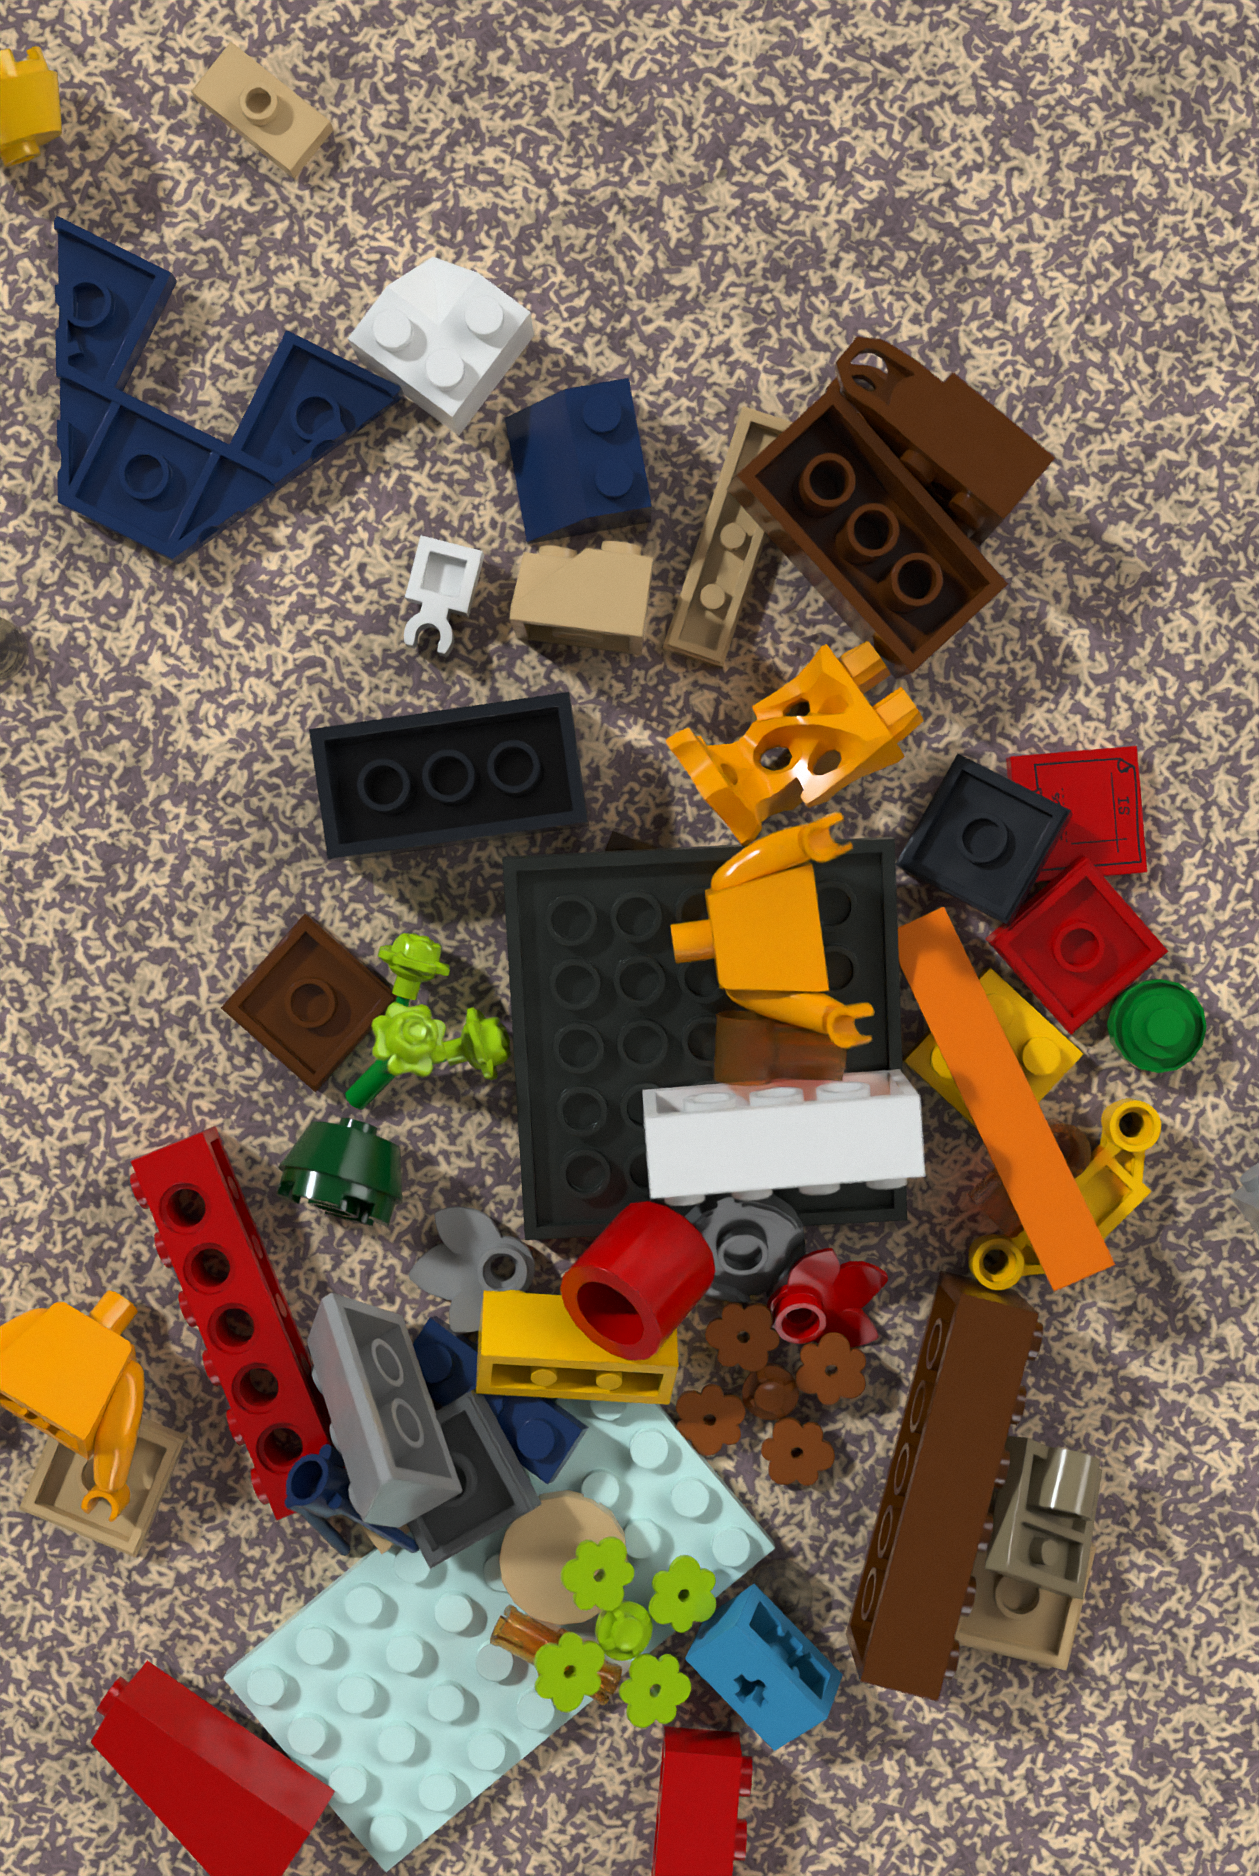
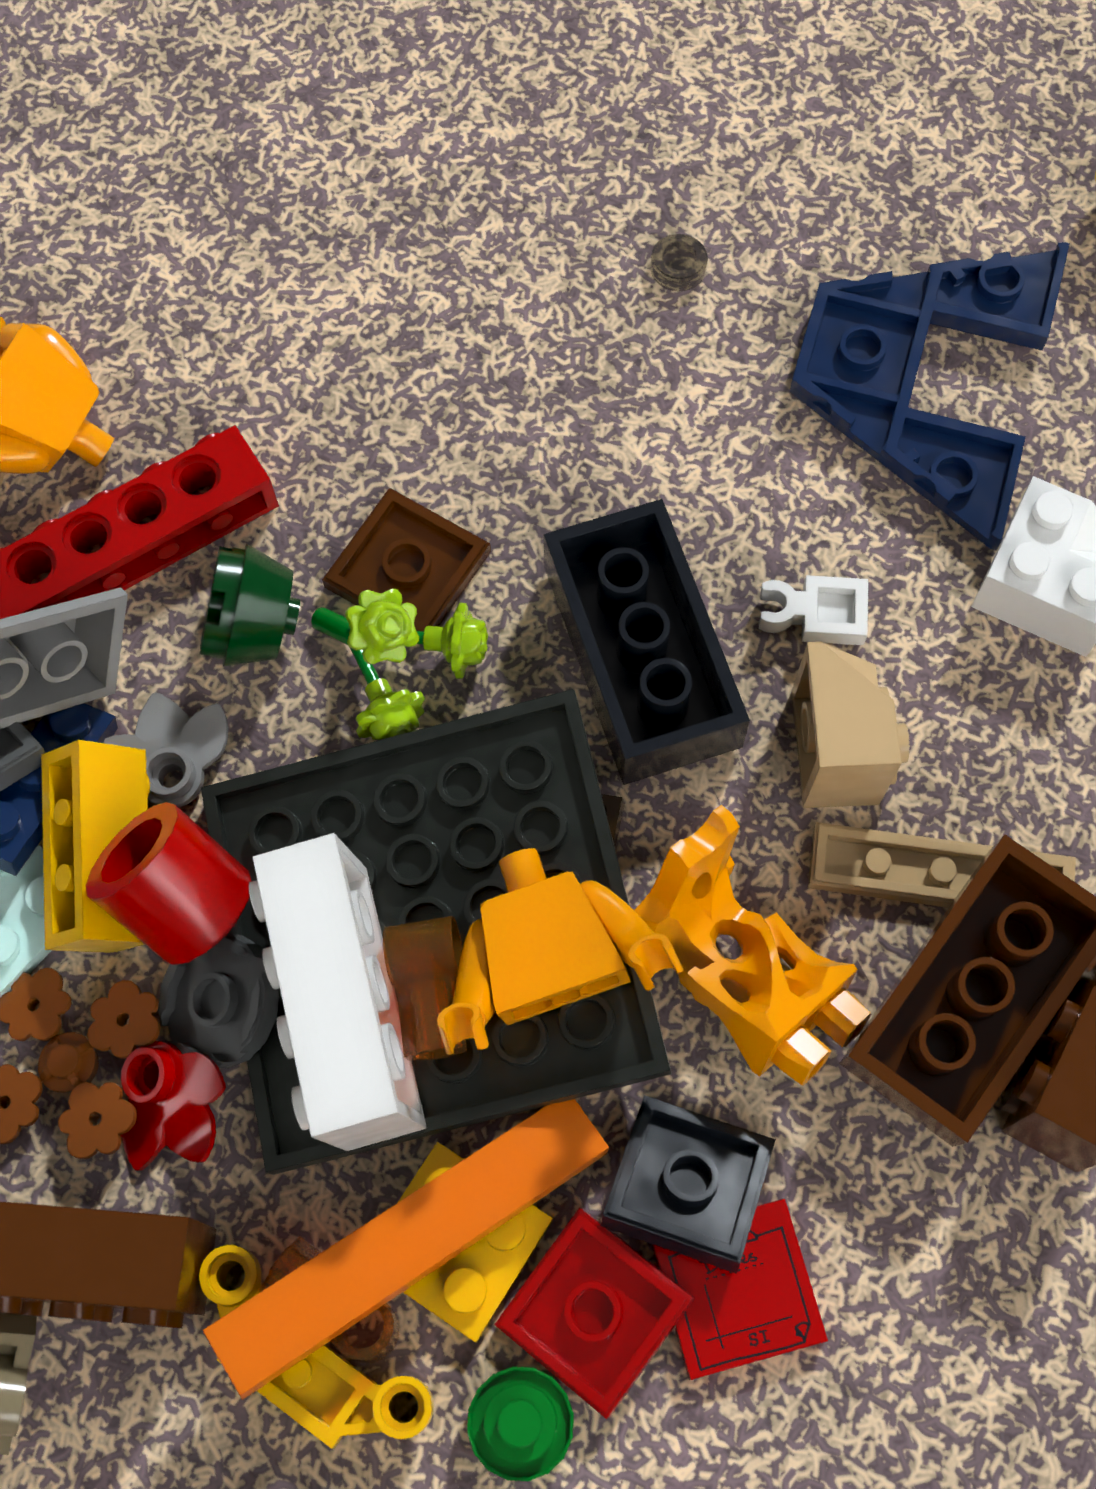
camera: 85 degrees right, 20 degrees down
(579, 462) = (978, 714): dark blue slope -> none

